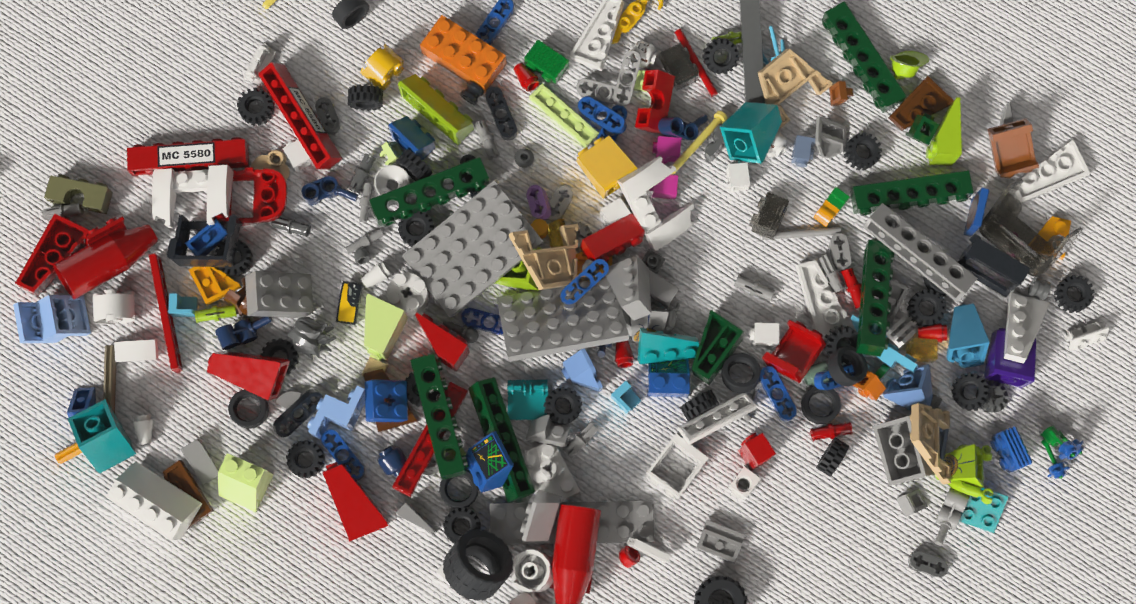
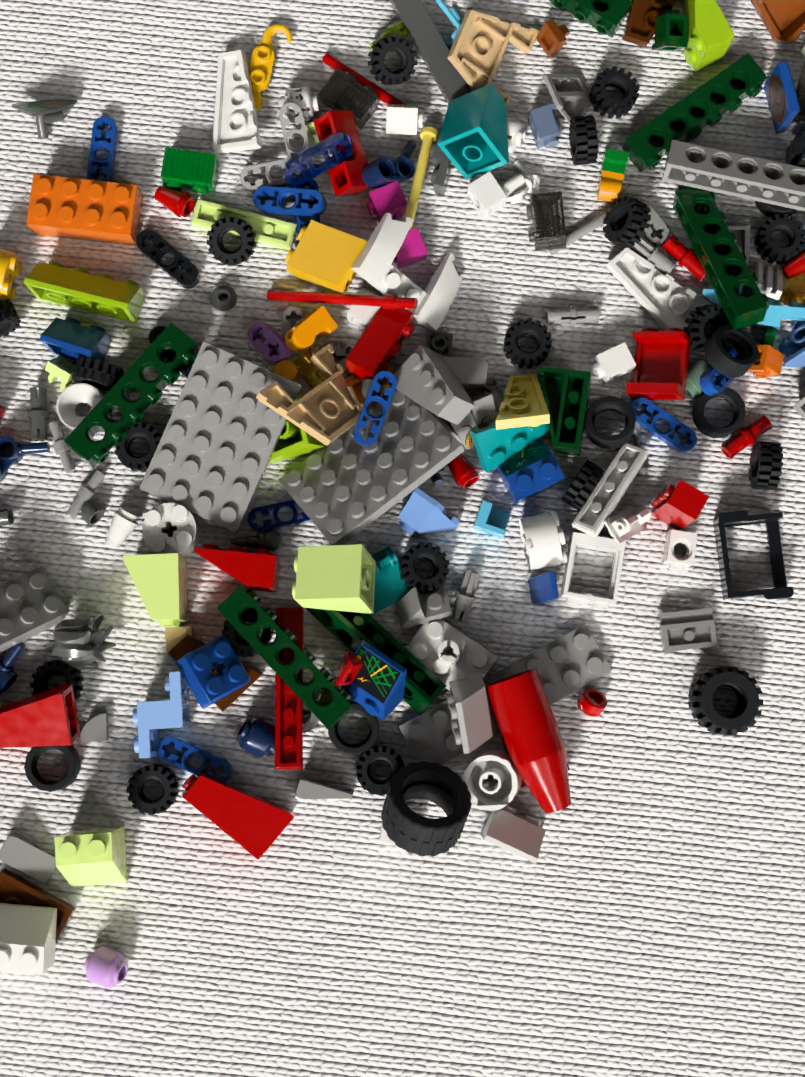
camera: 30 degrees left, 5 degrees up
(213, 560) = (106, 967): none -> lavender head
(298, 404) = (104, 744): black beam -> none
(349, 302) = (106, 576): slope -> none
(471, 93) = (120, 251): black wheel -> none
(475, 445) = (347, 669): none -> red slope
(486, 139) = (167, 298): light grey pin -> none
(498, 380) = (335, 578): none -> yellowish green slope
(561, 122) = (247, 240): none -> black tyre
(564, 208) = (304, 332): none -> light orange leg
(631, 215) = (388, 301): none -> red bar
(635, 461) = (543, 588): none -> blue slope
(641, 92) = (321, 148): none -> clear blue beam
(648, 550) = (612, 684): white tile -> none
(652, 428) = (542, 540): none -> white brick
(686, 329) = (522, 403): none -> light yellow wing
(707, 98) = (403, 119): none -> white brick
(717, 447) = (628, 523): none -> white hinge
(718, 280) = (527, 328): none -> black tyre
(759, 182) = (515, 189): none -> white plate
(774, 181) = (531, 179): none -> white hand
(795, 484) = (741, 518): none -> black piece
(823, 173) = (583, 140): none -> black tyre
(823, 242) = (626, 221): none -> black tyre

